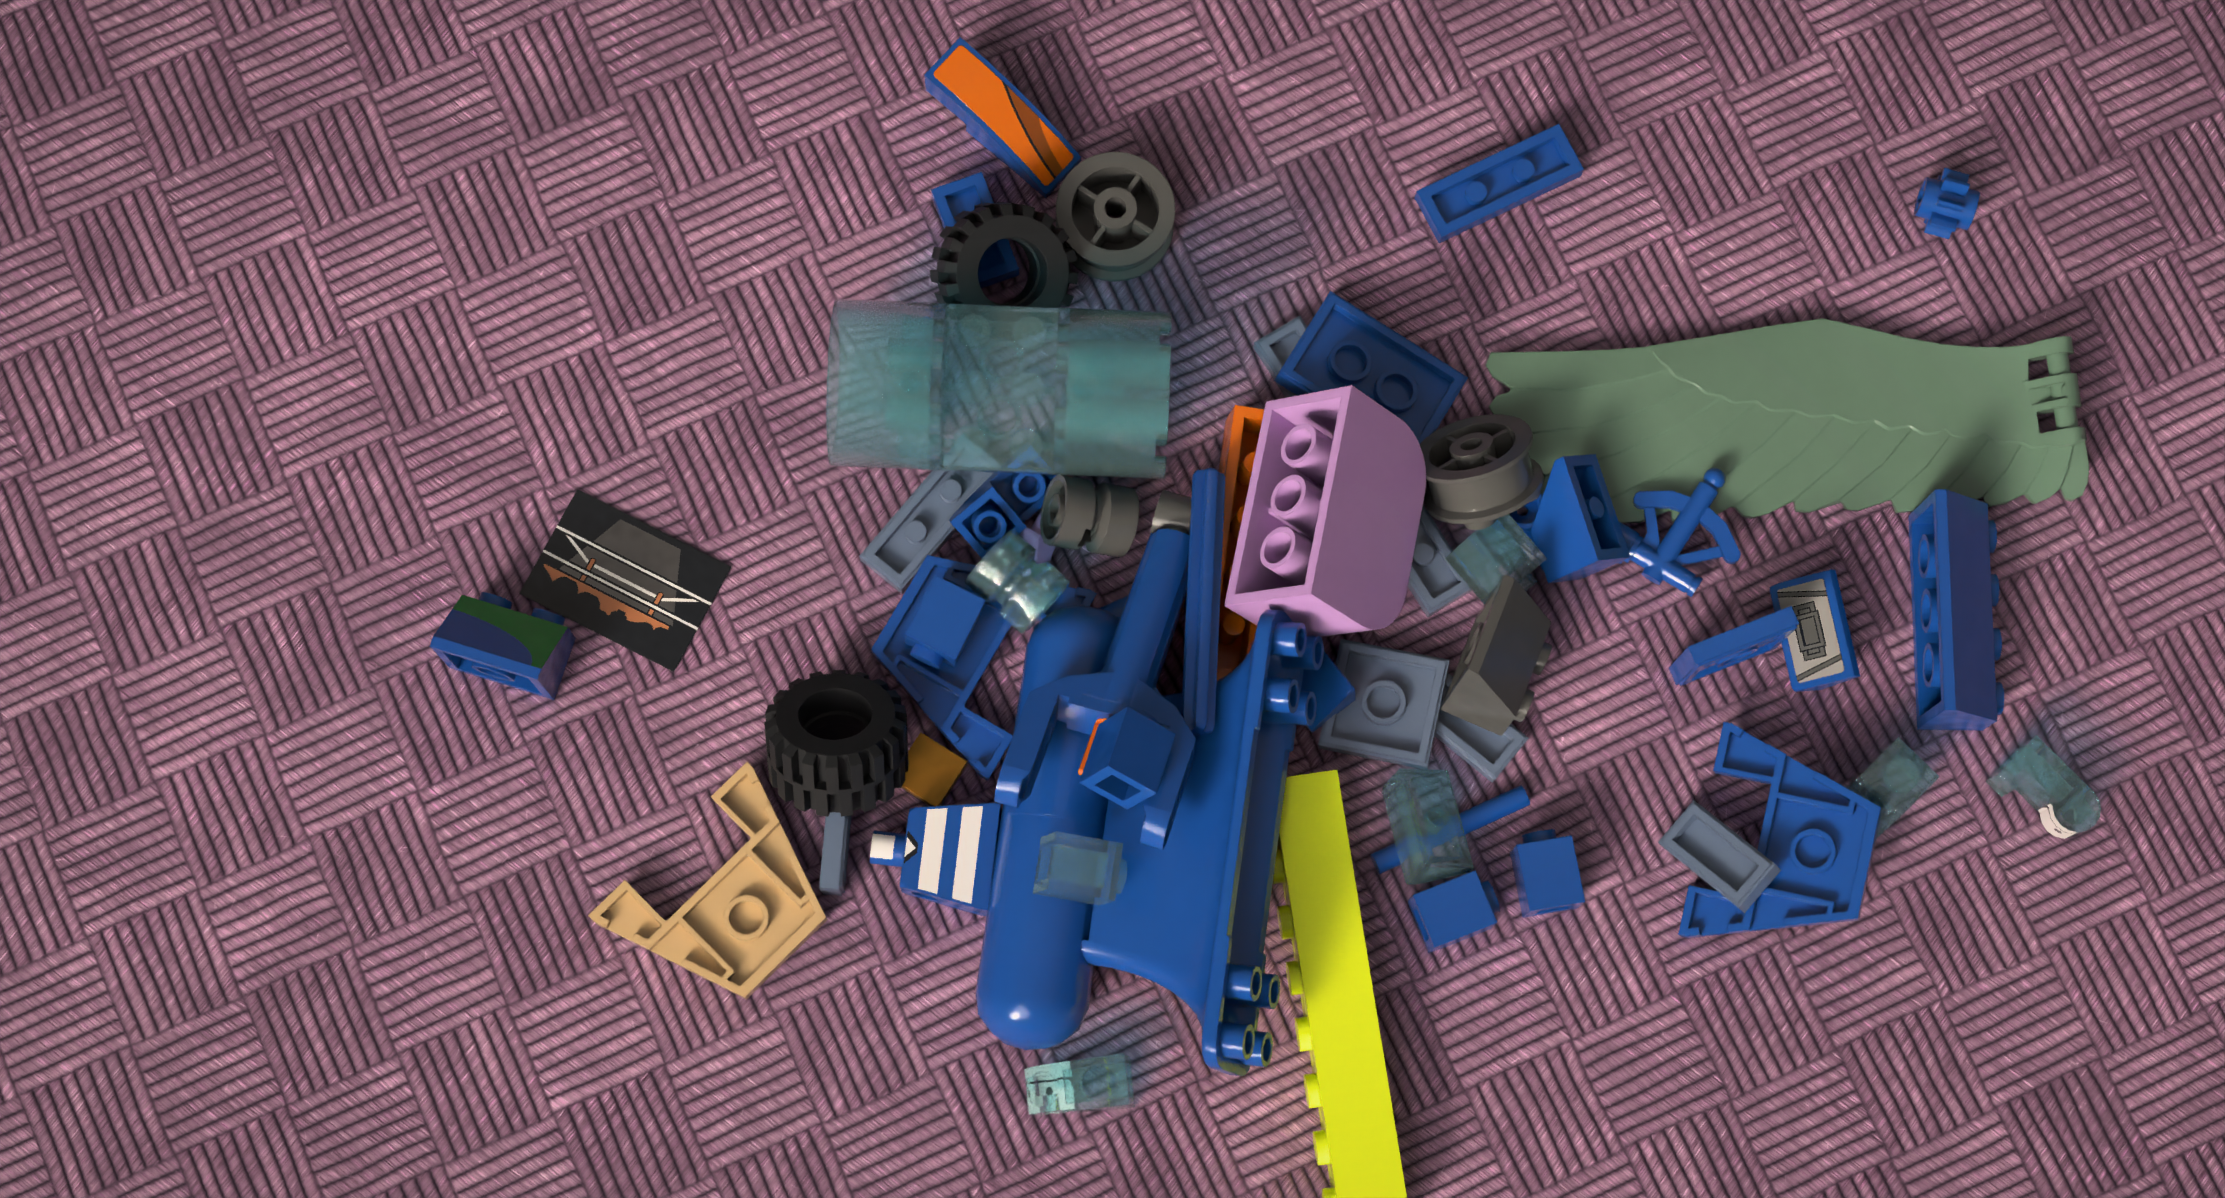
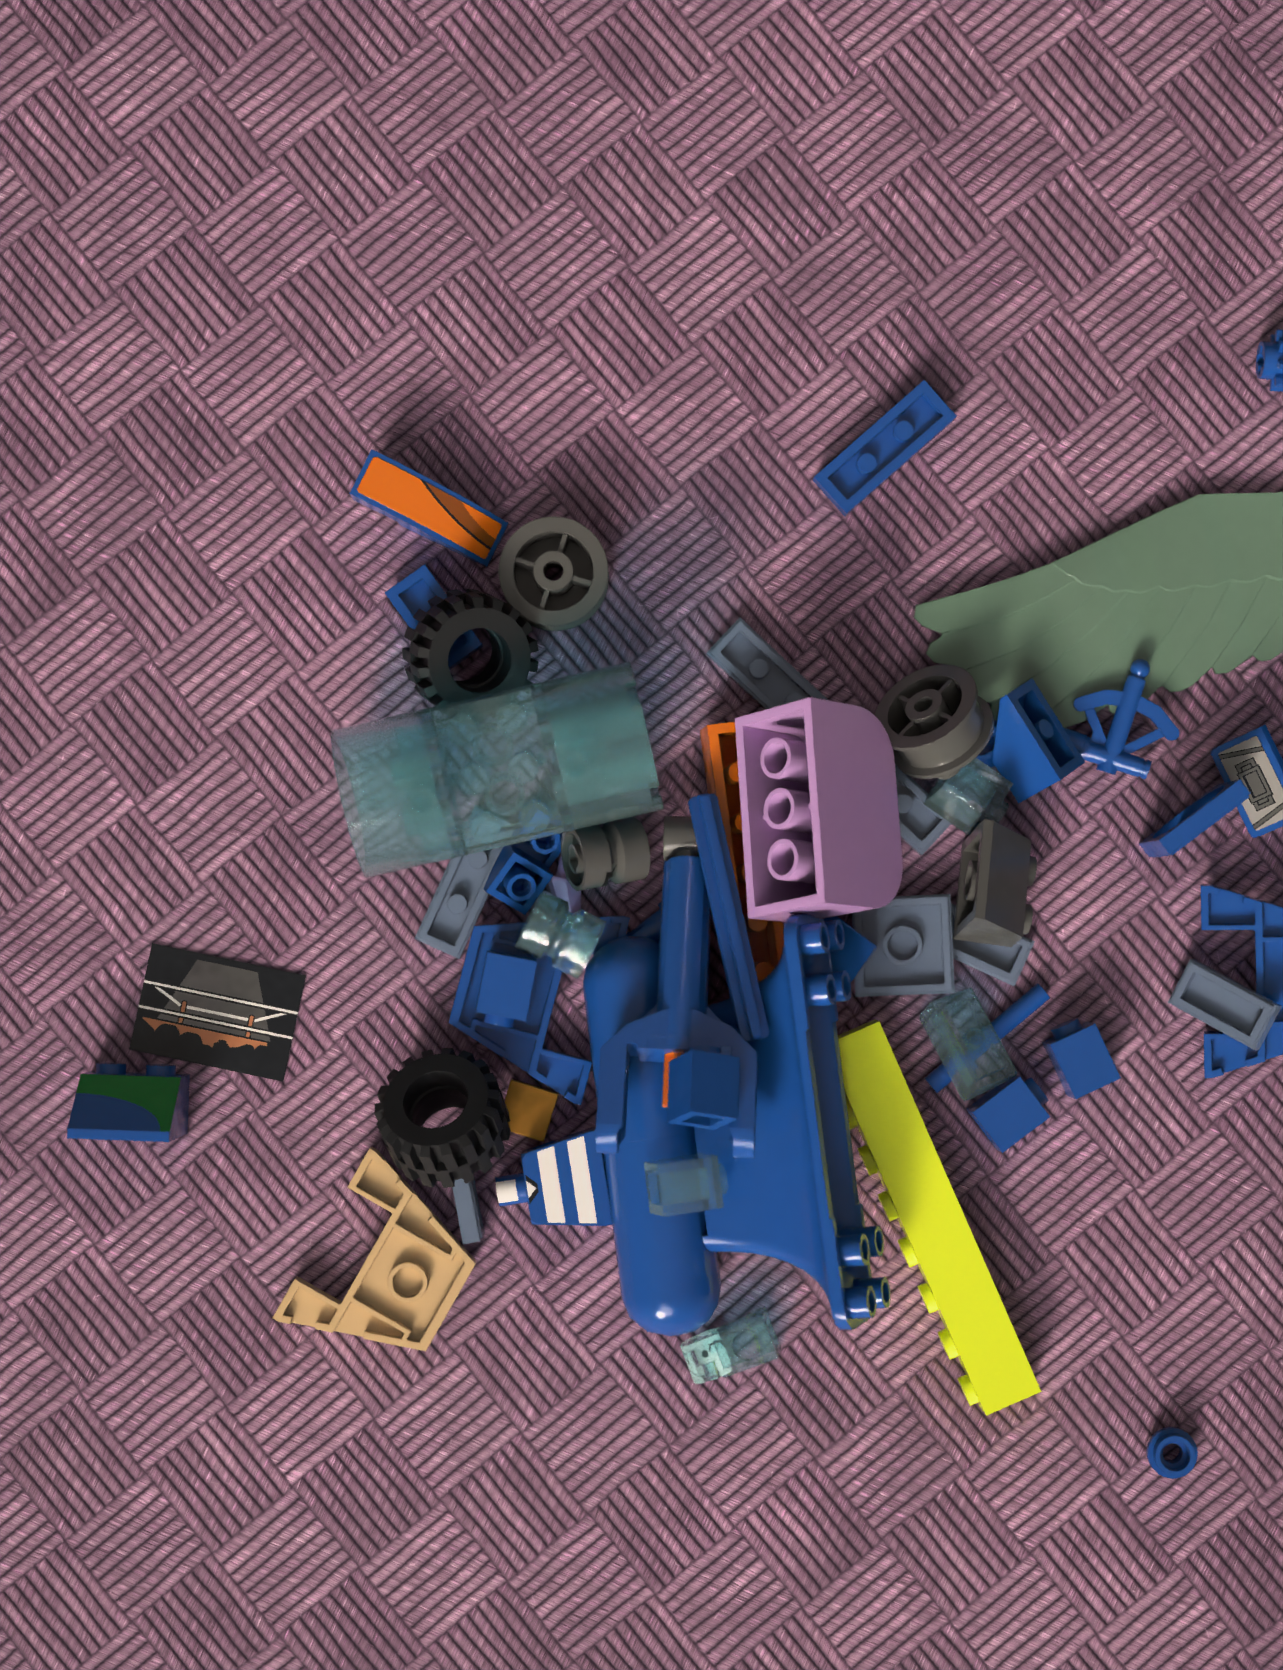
camera: 15 degrees left, 10 degrees up
(1357, 350) = (815, 653): blue tile -> none

